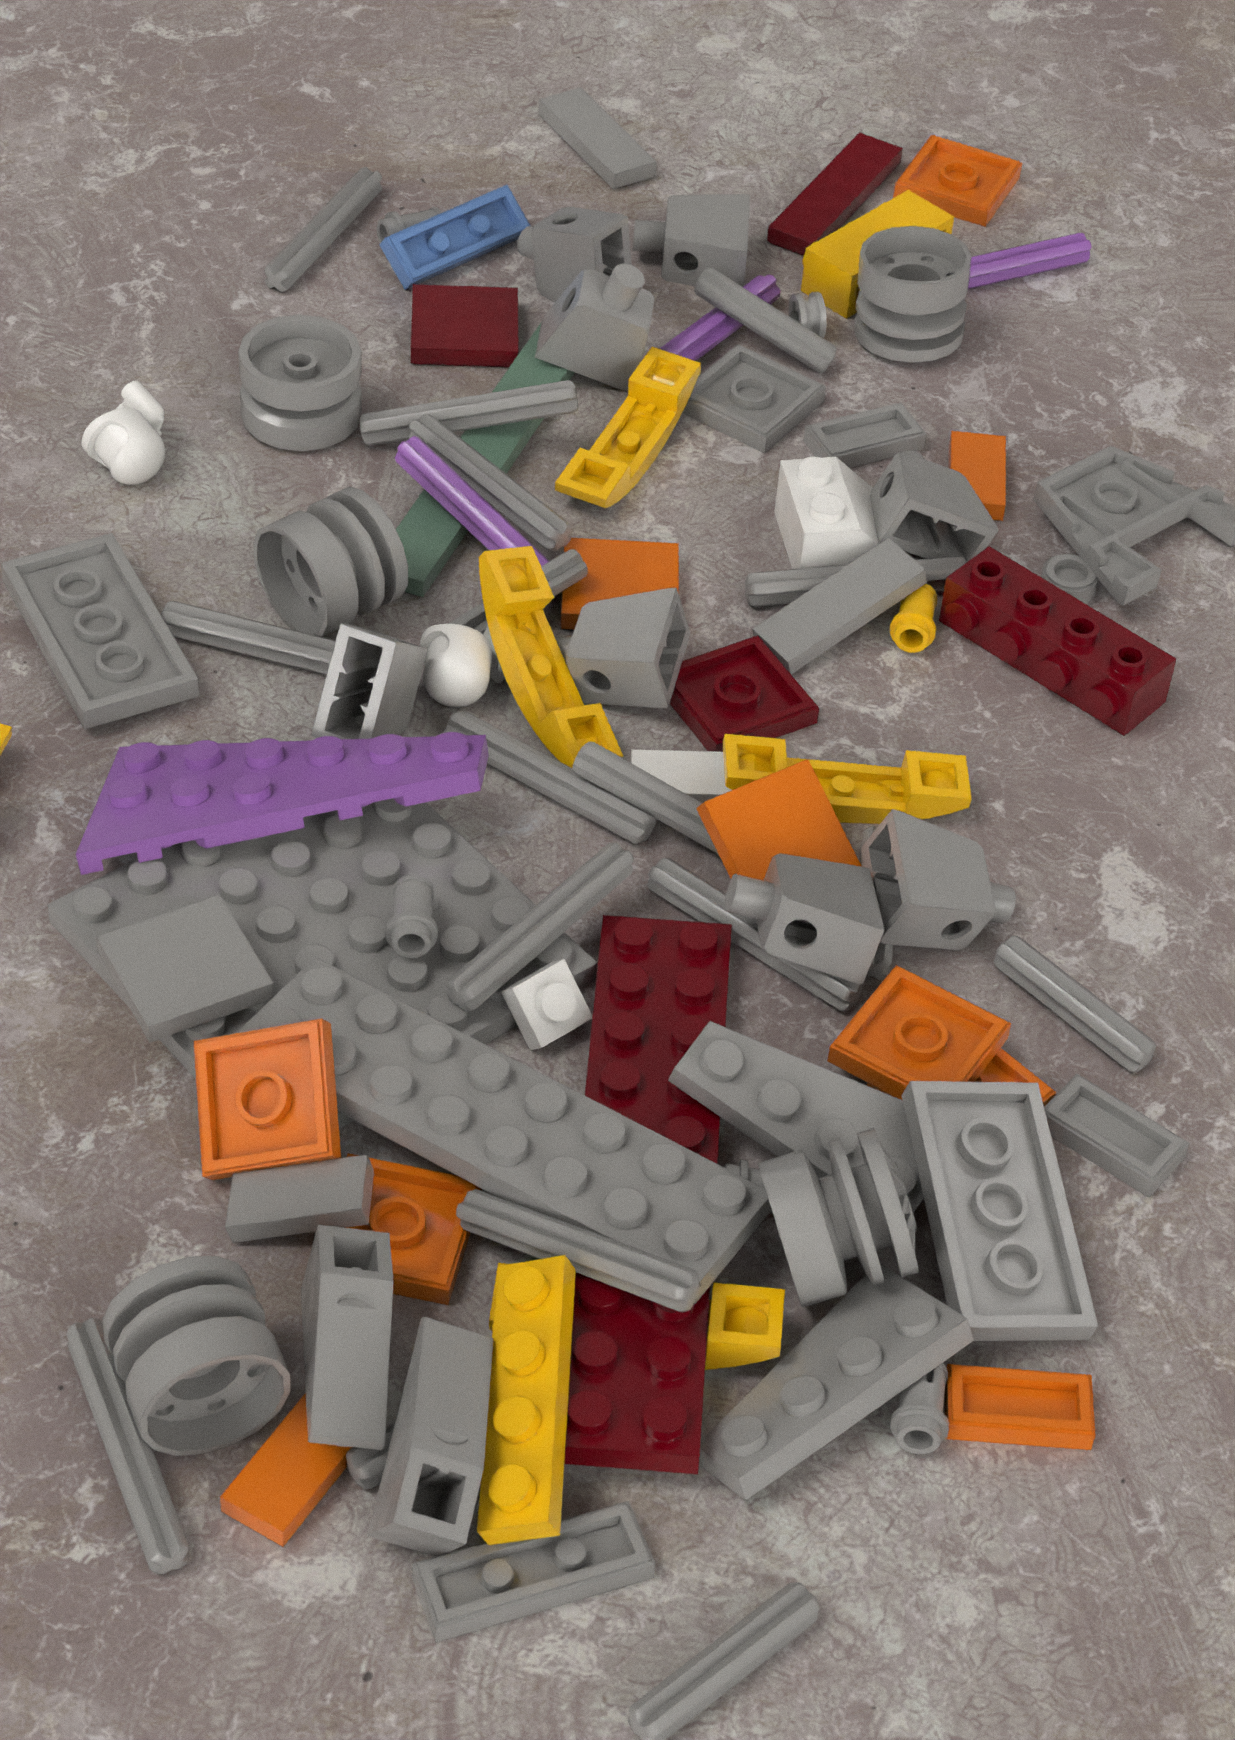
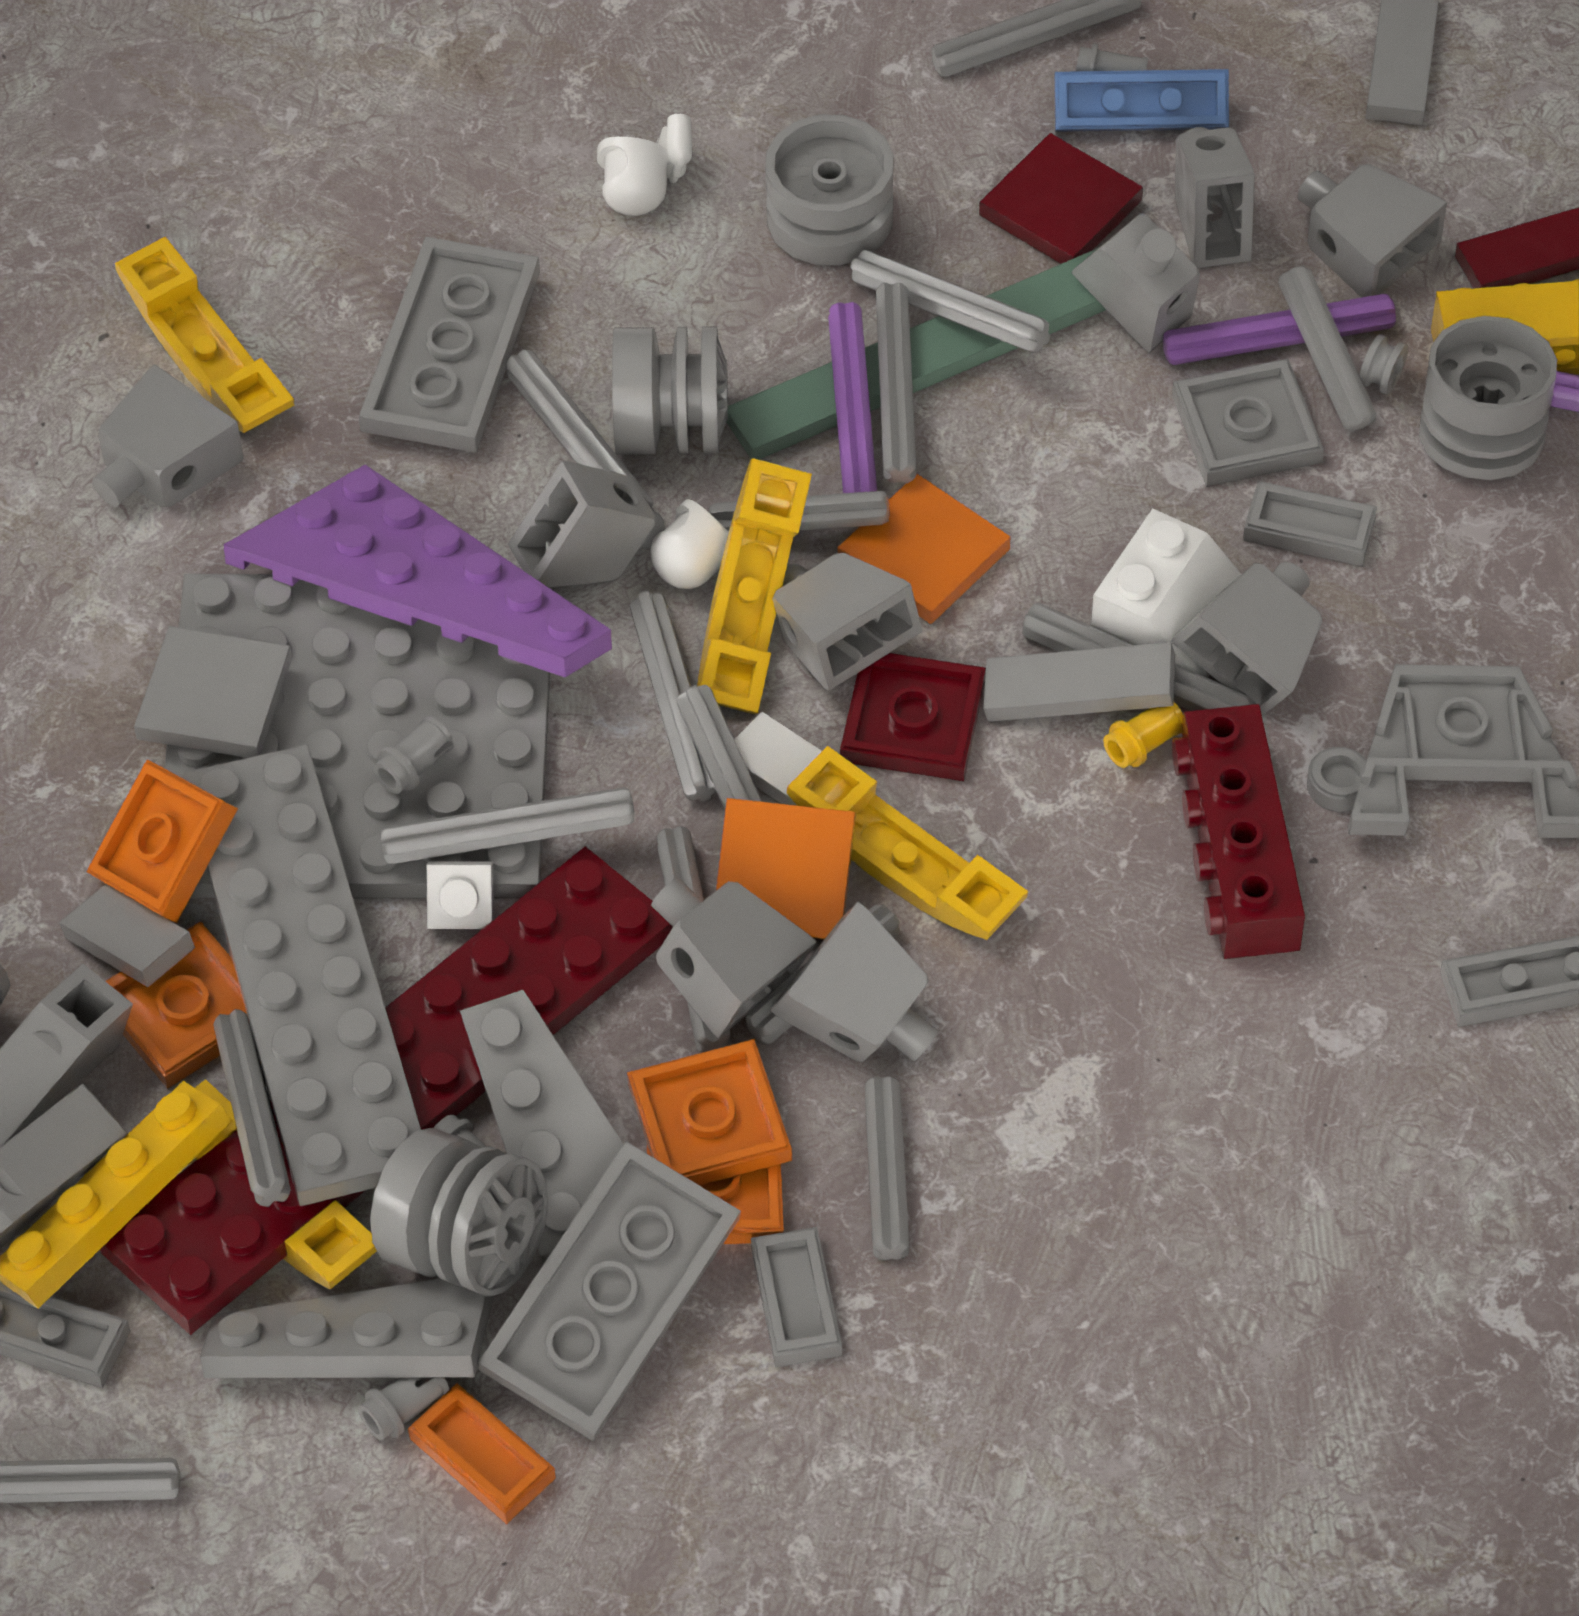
camera: 45 degrees right, 10 degrees up
(635, 433) = (1084, 407): yellow slope -> none
(983, 463) = (1372, 622): orange tile -> none

